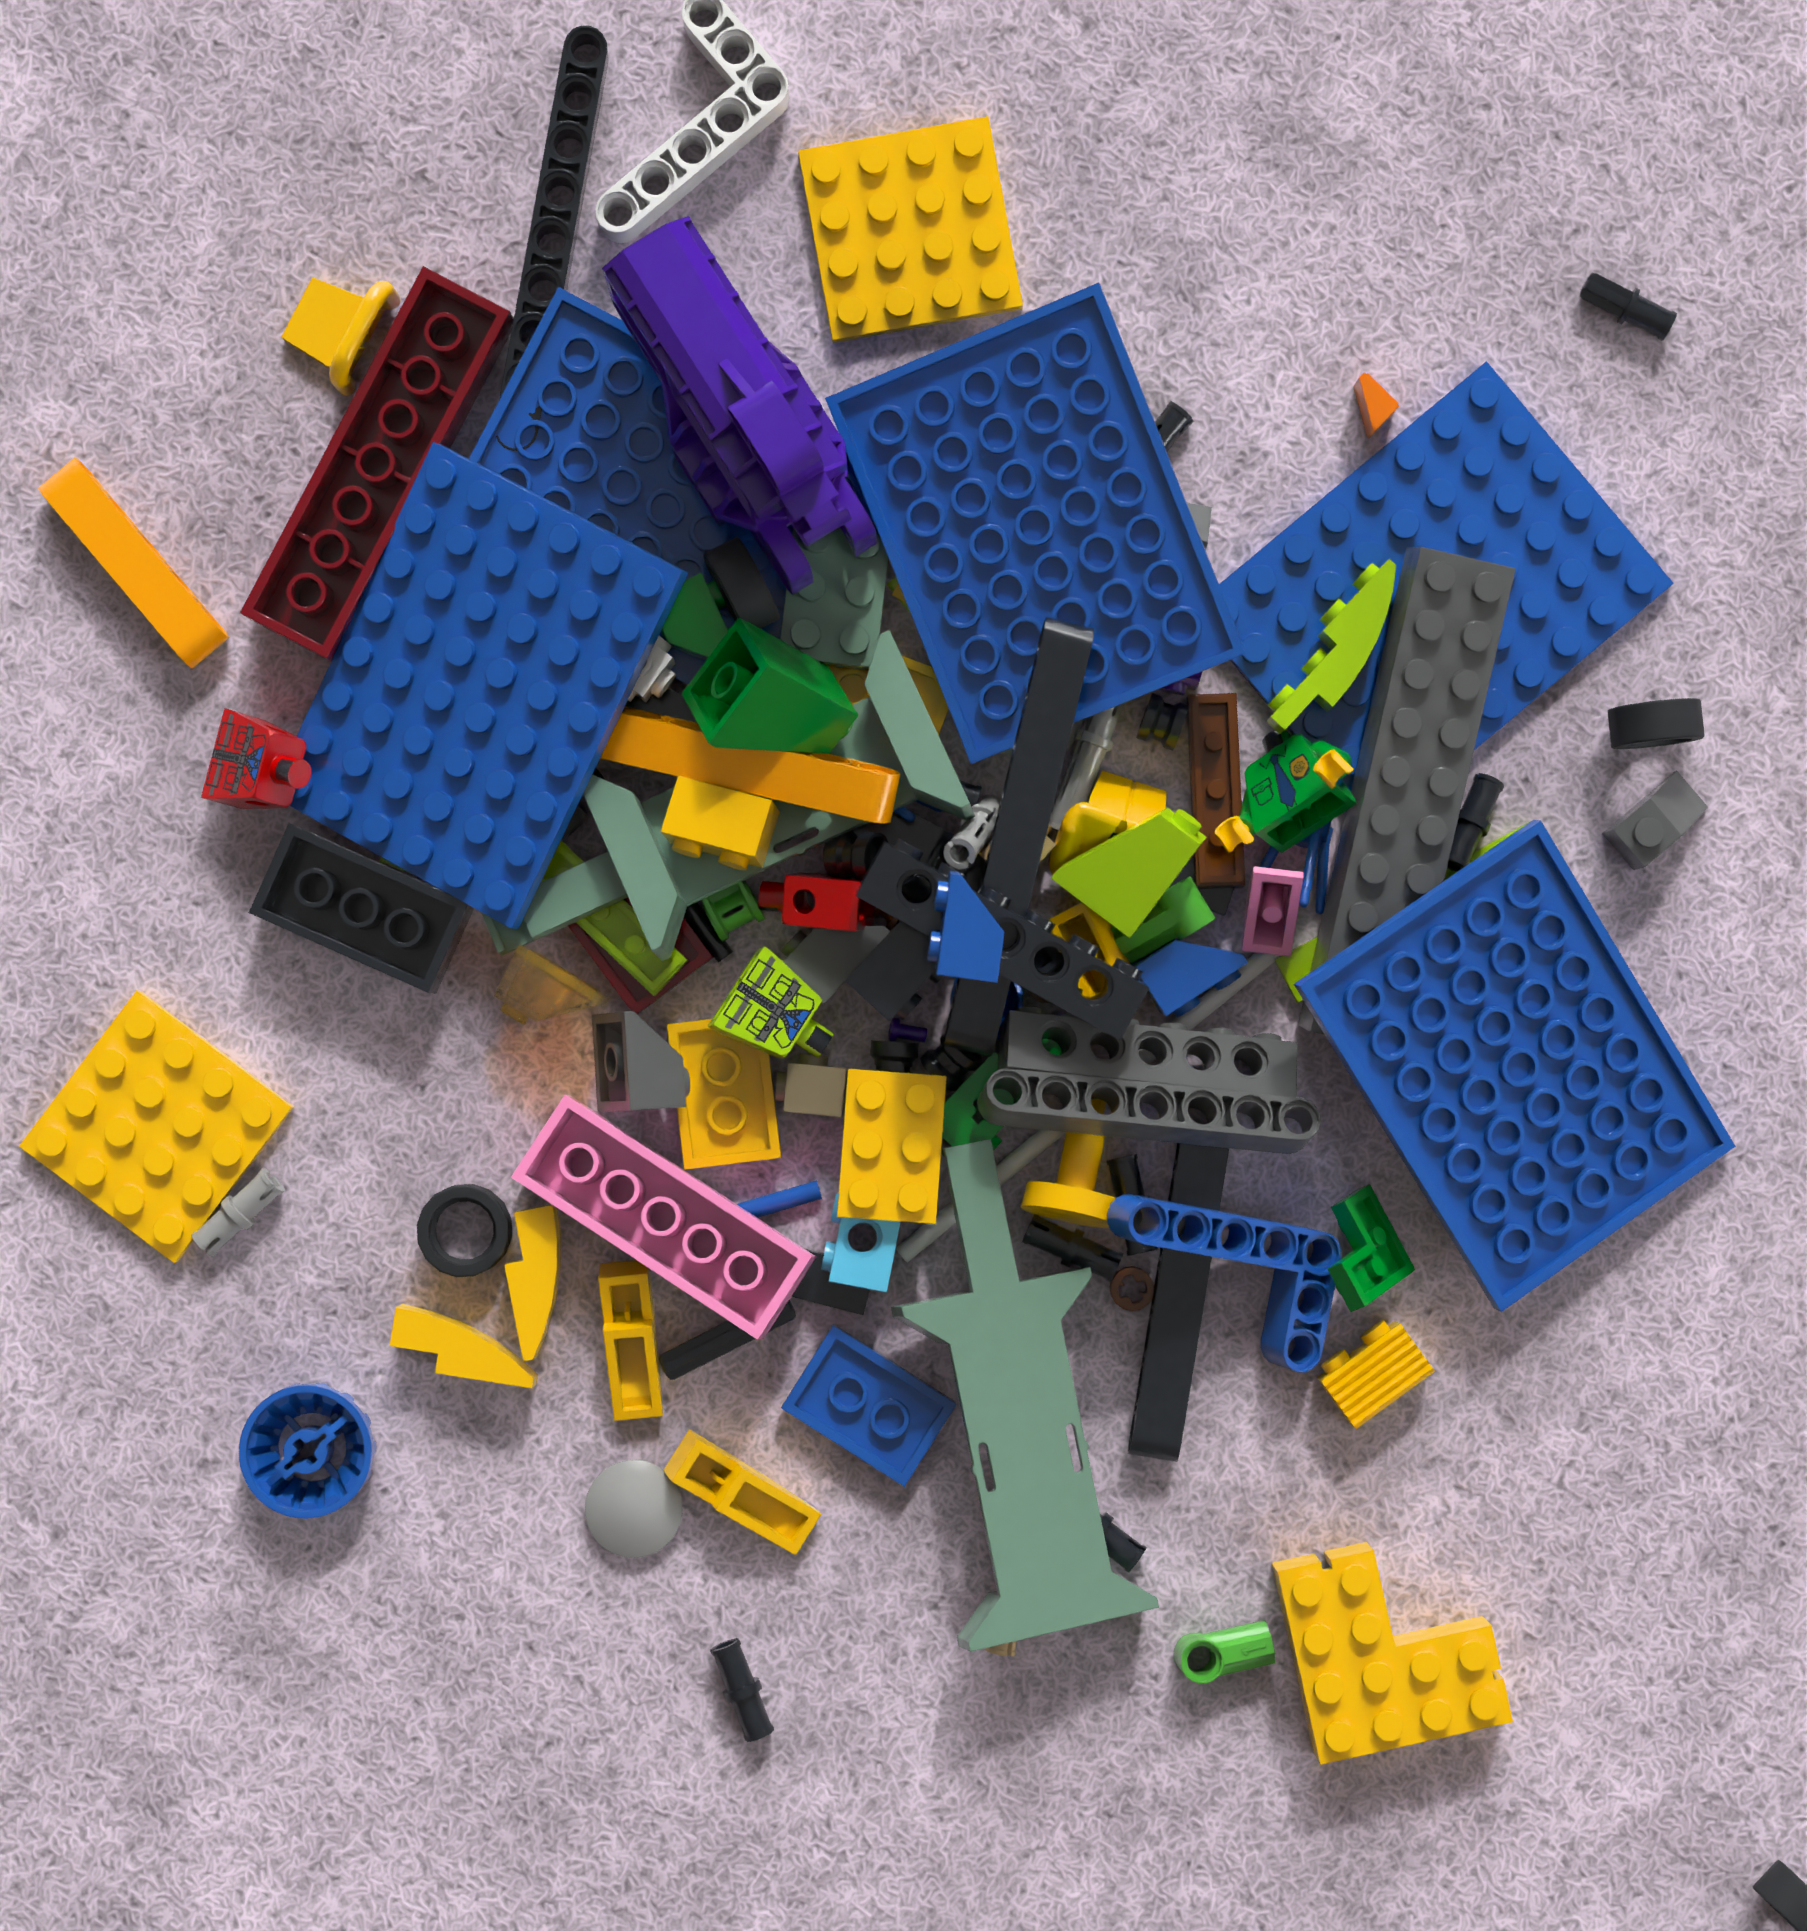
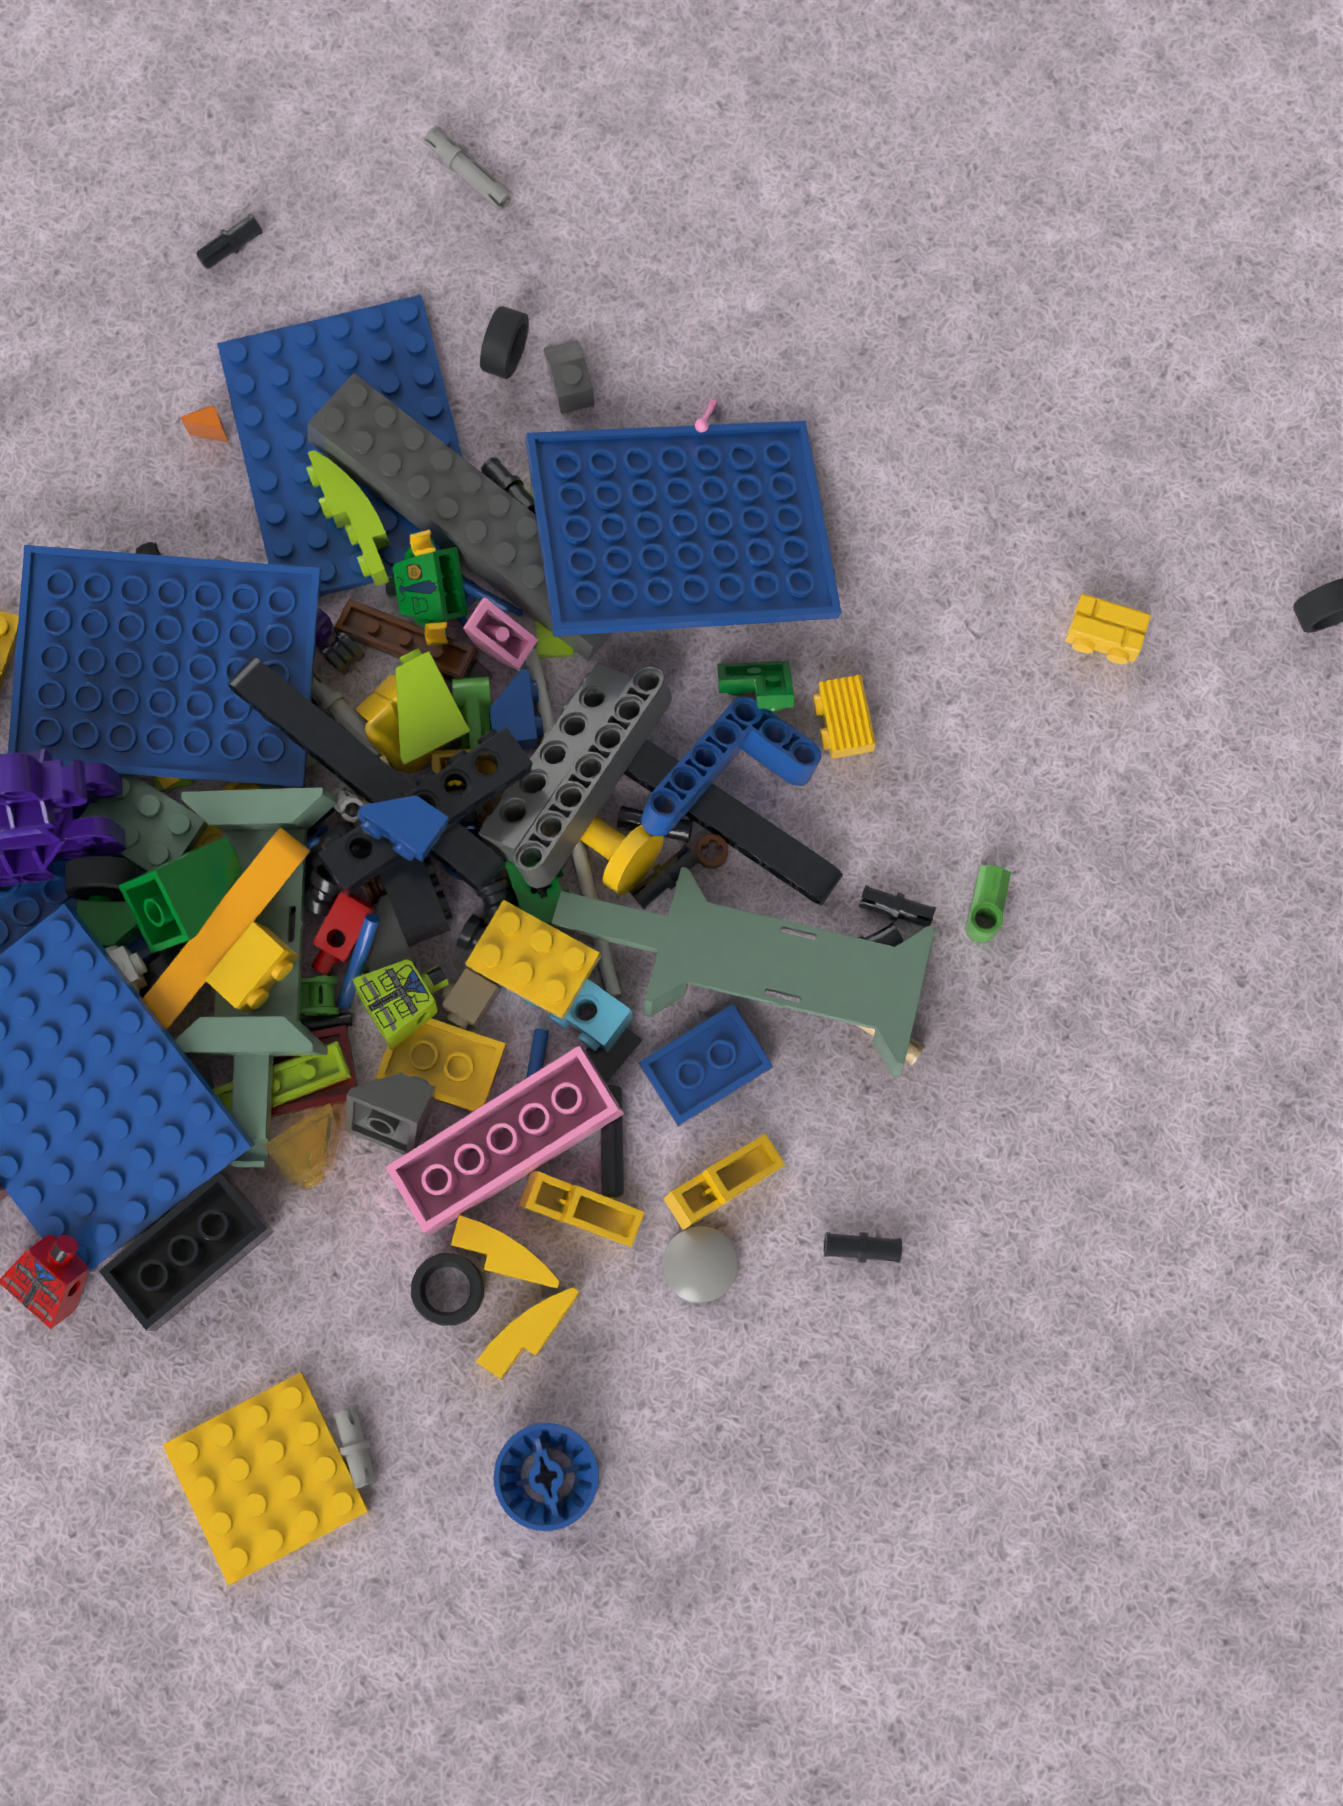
camera: 60 degrees left, 10 degrees down
(792, 938) = (358, 960): none -> blue bar
(905, 1031) = (458, 925): dark purple piece -> none
(1168, 1545) = (897, 907): none -> black pin
(1375, 1688) = (1043, 822): yellow piece -> none
(1641, 1643) = (1107, 629): none -> yellow brick
(1661, 1027) = (702, 424): none -> bright pink hinge

